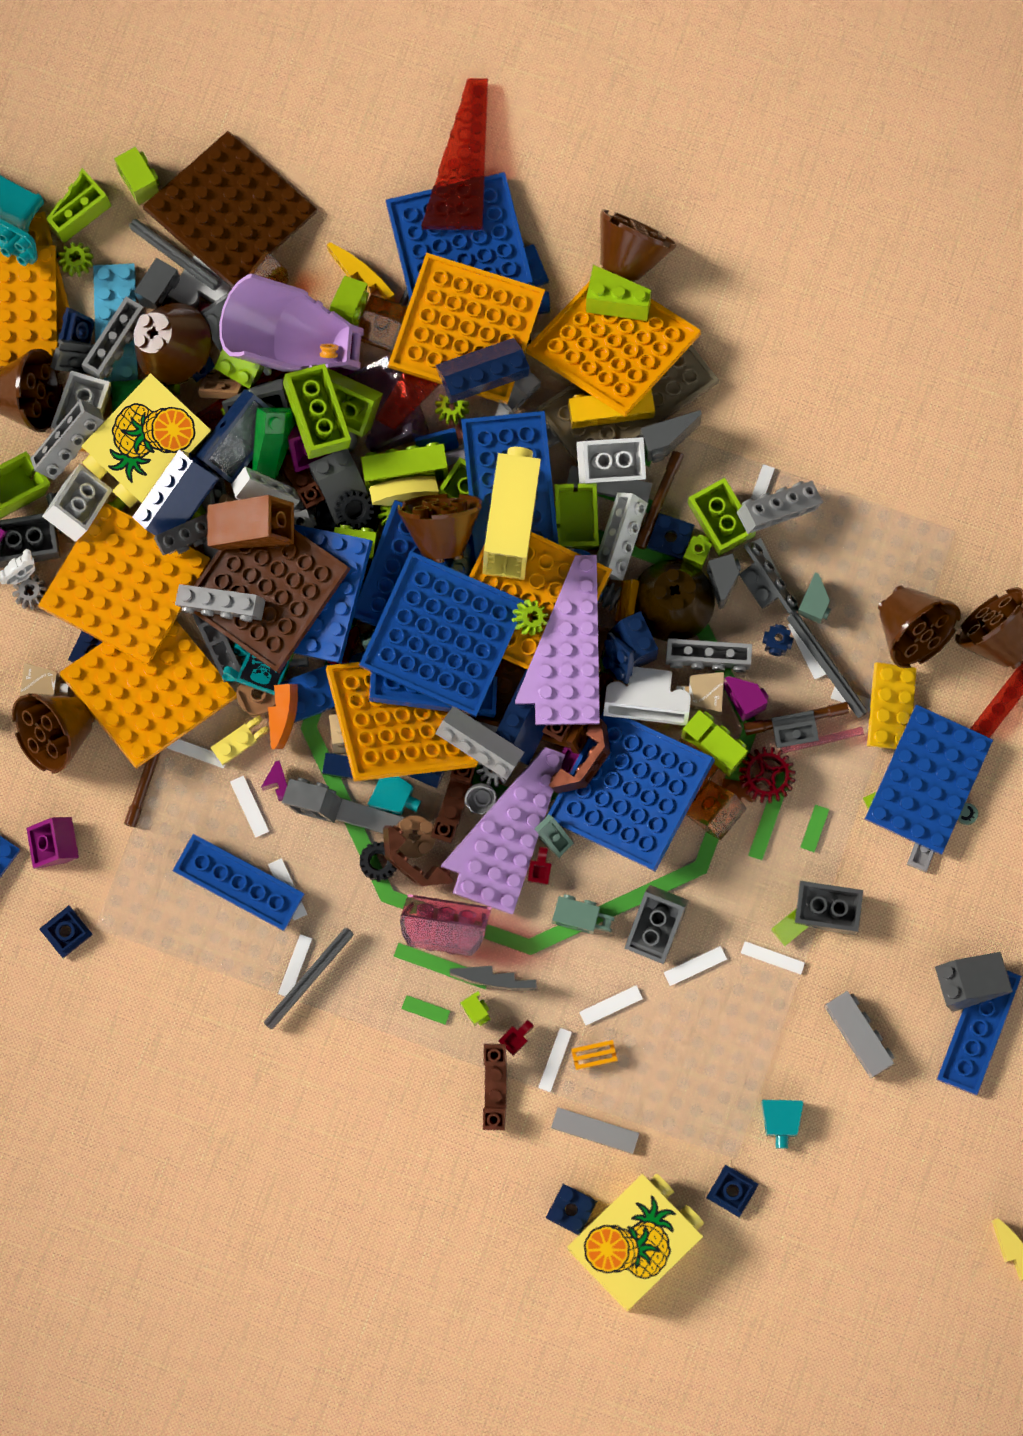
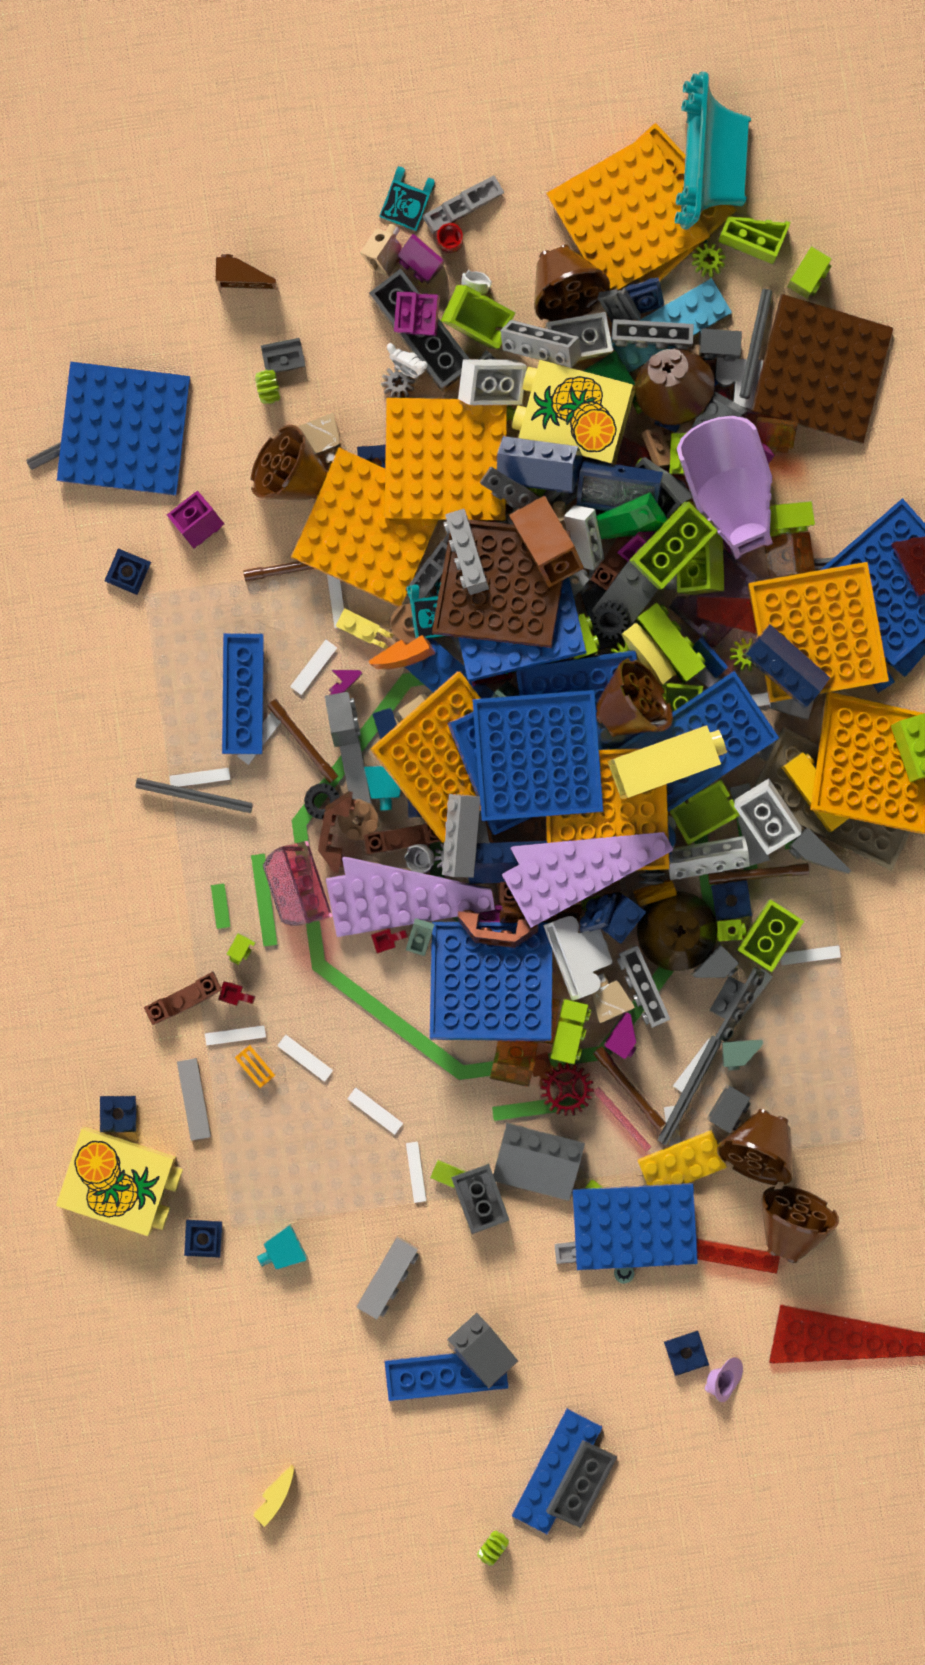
camera: 60 degrees right, 10 degrees up
(328, 351) = (735, 525): light orange bush -> none
(345, 844) = (323, 766): none -> reddish brown piece
(357, 269) = (827, 505): yellow slope -> none
(484, 977) = (271, 942): dark grey slope -> none
(523, 621) = (589, 829): lime gear -> none
(580, 915) = (364, 993): sand green brick -> none
(656, 924) = (391, 1061): dark grey slope -> none
(775, 647) = (679, 1039): dark blue brick -> none
(779, 507) = (803, 981): light grey brick -> none
(795, 729) = (618, 1092): dark grey plate -> none
(821, 836) = (538, 1161): none -> dark grey slope
(862, 635) = (729, 1108): none -> dark grey brick

